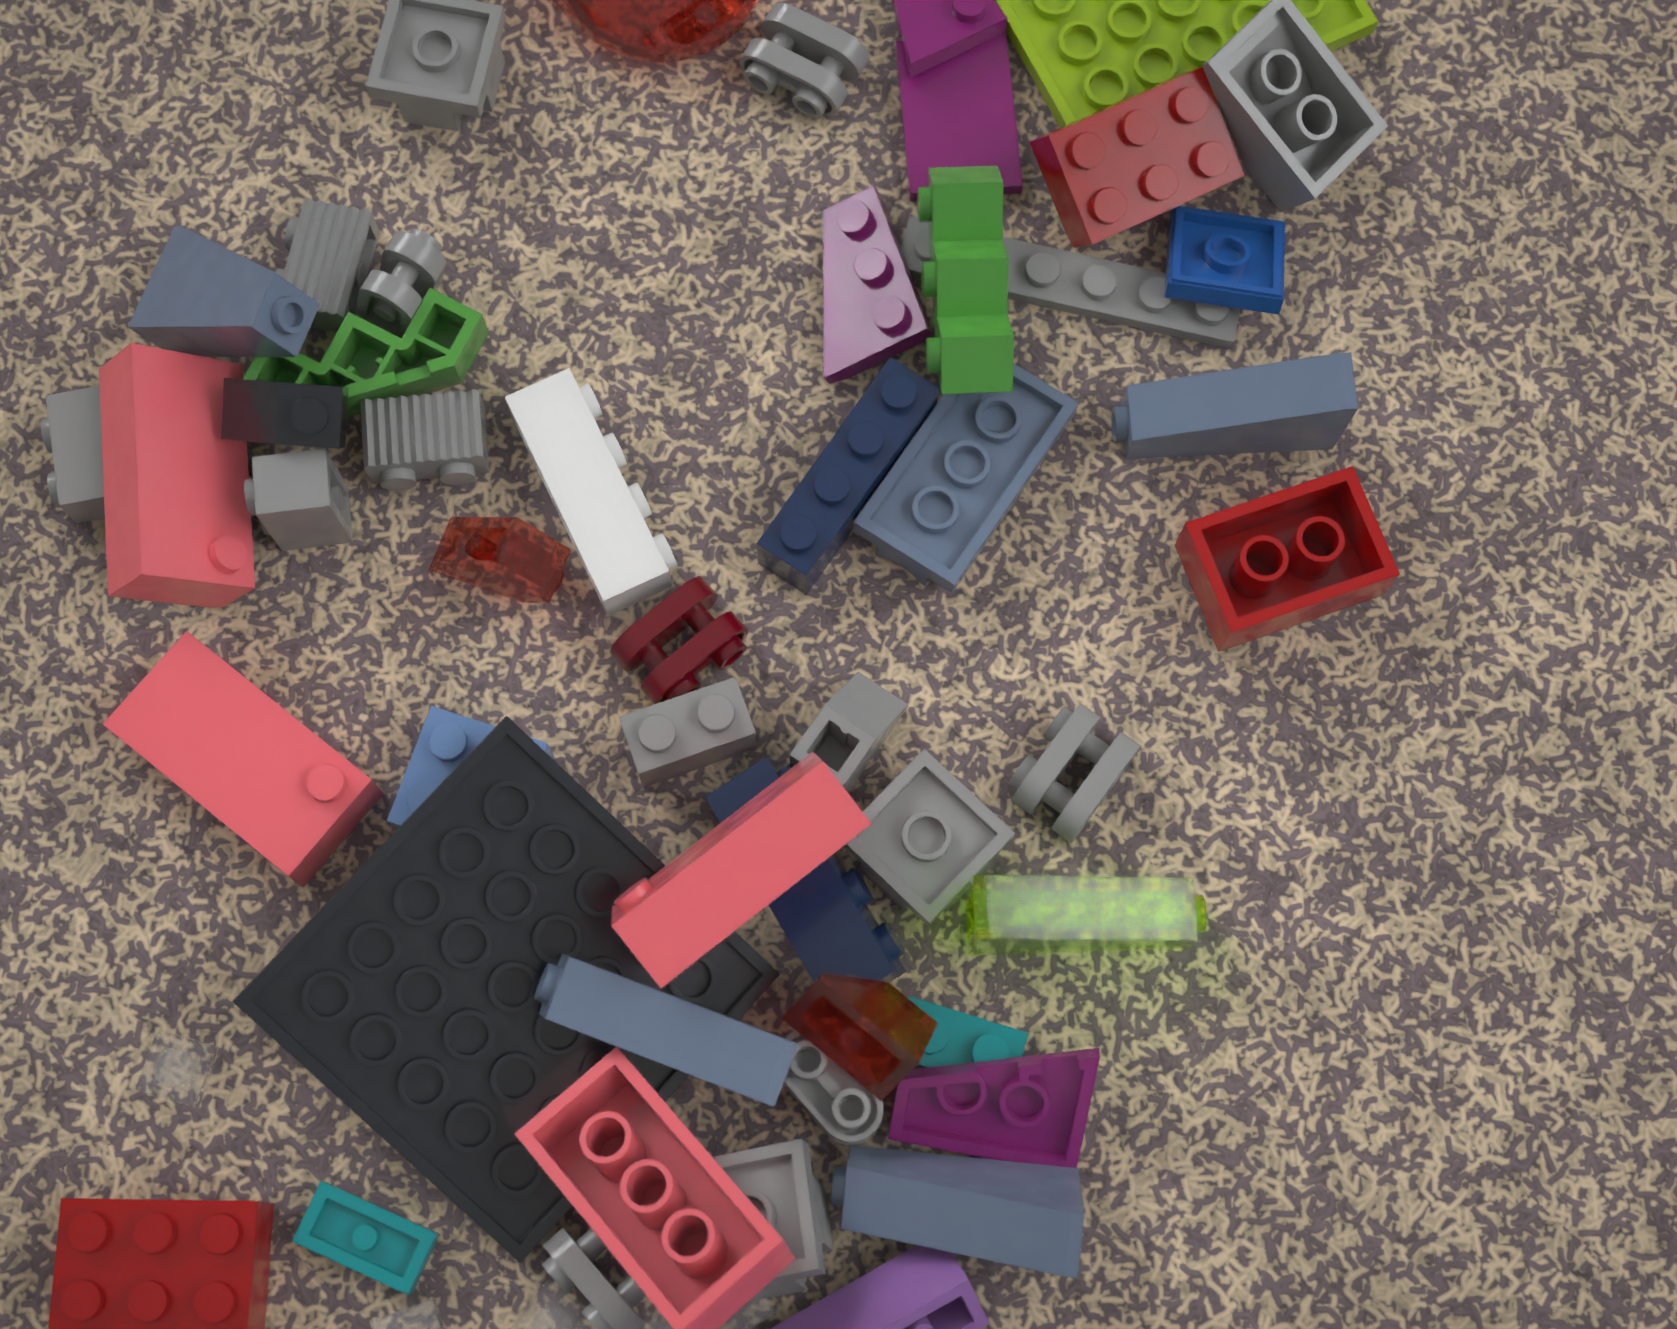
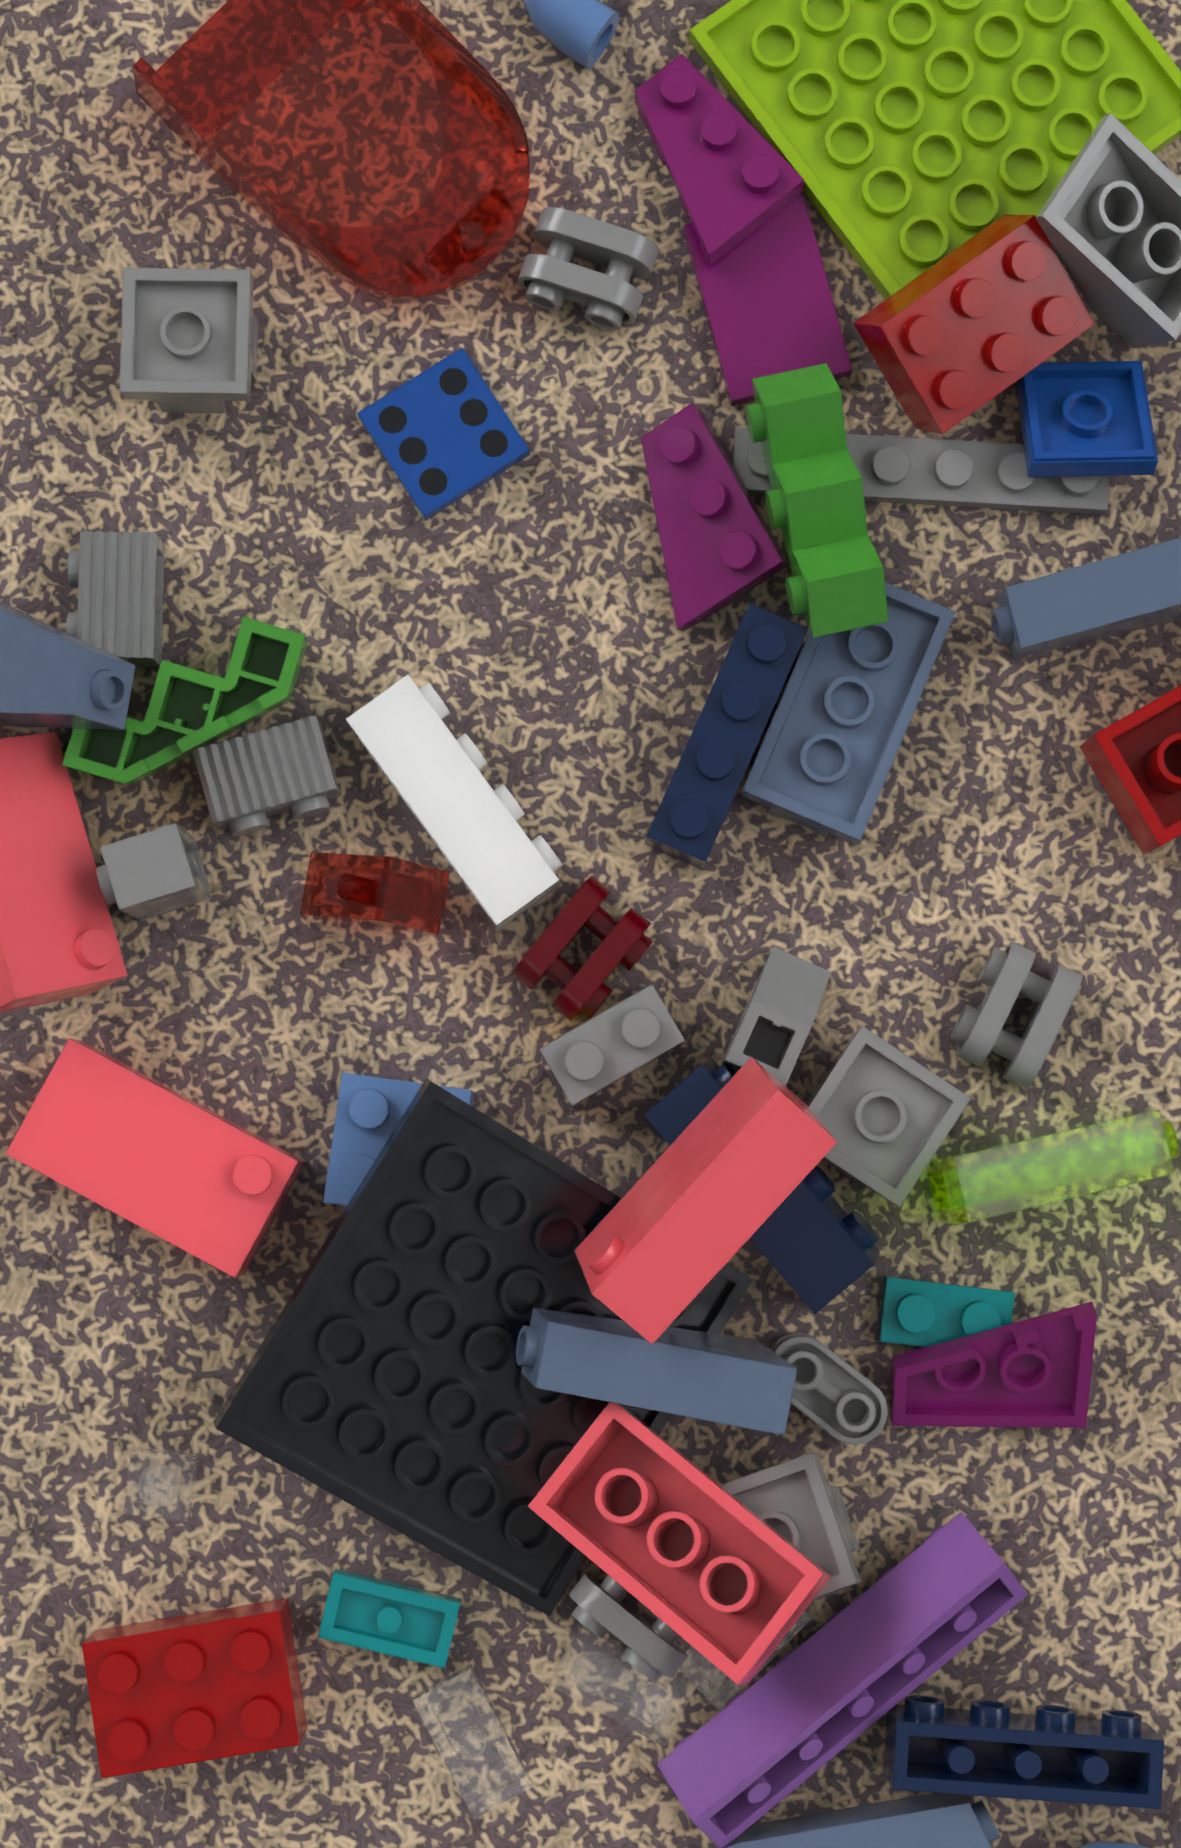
camera: 10 degrees left, 10 degrees up
(284, 413) = (122, 789): black slope -> none
(406, 273) = (215, 591): light grey brick -> none
(648, 179) = (443, 434): none -> blue tile
(863, 1028) = (857, 1332): clear red slope -> none
(965, 1206) = (988, 1484): sand blue slope -> none

